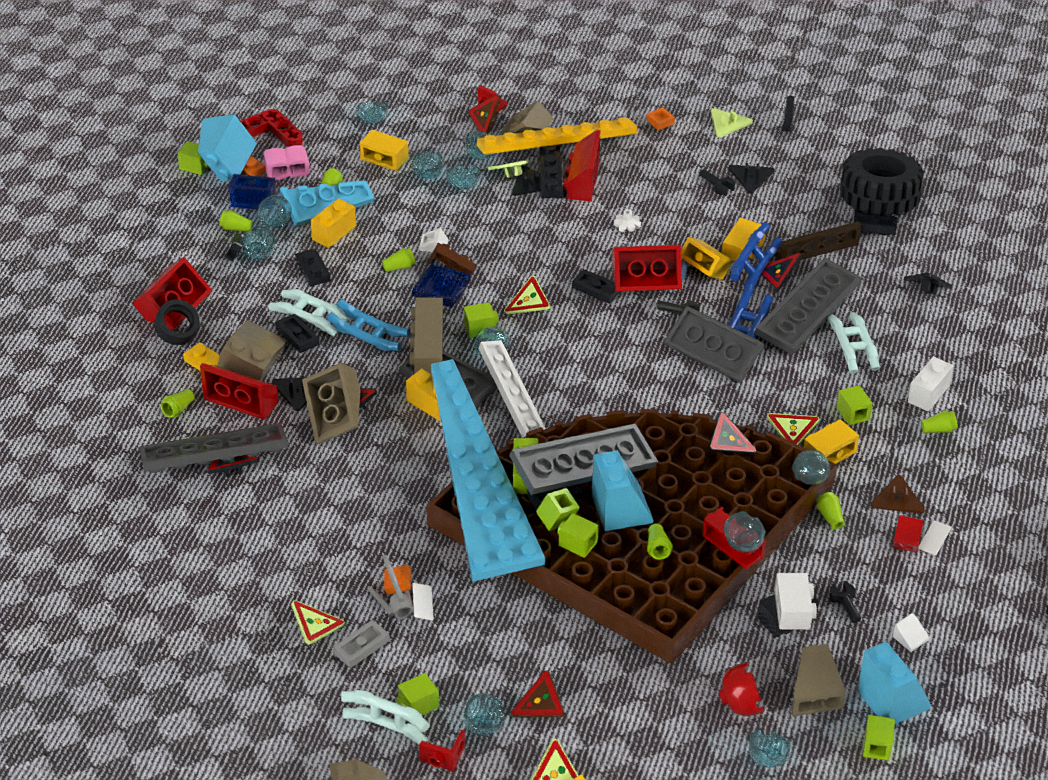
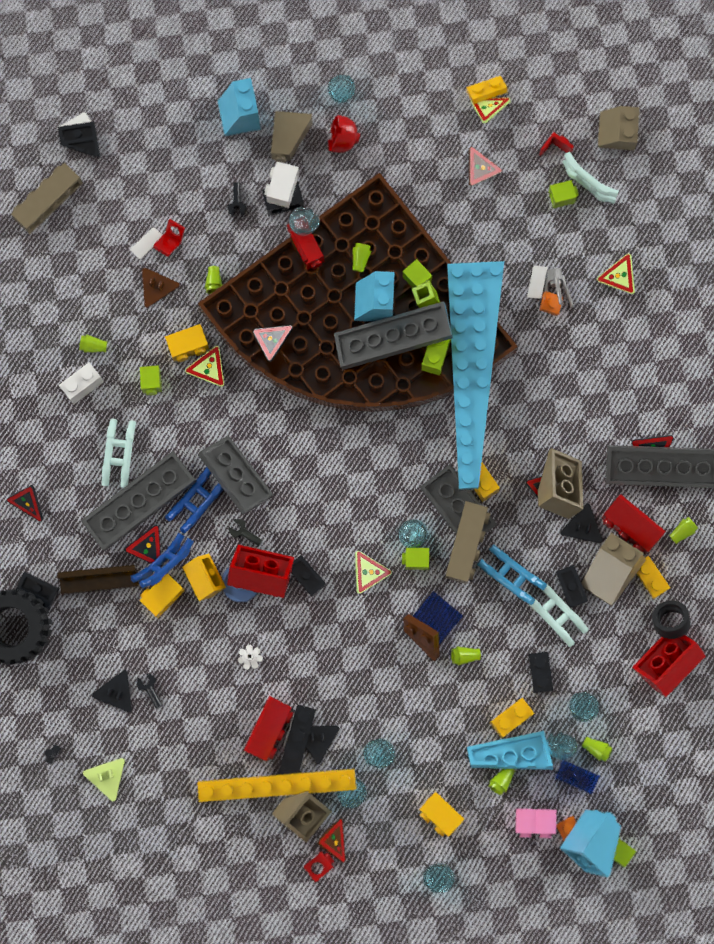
camera: 160 degrees left, 35 degrees up
(234, 248) = (606, 706): black bar -> none
(267, 122) = (543, 892): red beam -> none
(361, 643) = (590, 251): light grey plate -> none
(427, 164) = (407, 779): clear light blue hair -> none
(431, 239) = (427, 677): white slope -> none
(483, 714) = (523, 164): clear light blue hair -> none
(508, 168) = (329, 757): yellowish green piece -> none
(510, 386) = (414, 462): white plate -> none
(660, 118) = (170, 792): orange plate -> none
(811, 467) = (220, 299): clear light blue hair -> none
(879, 737) = (265, 80): lime brick -> none
(910, 633) = (205, 160): white slope -> none

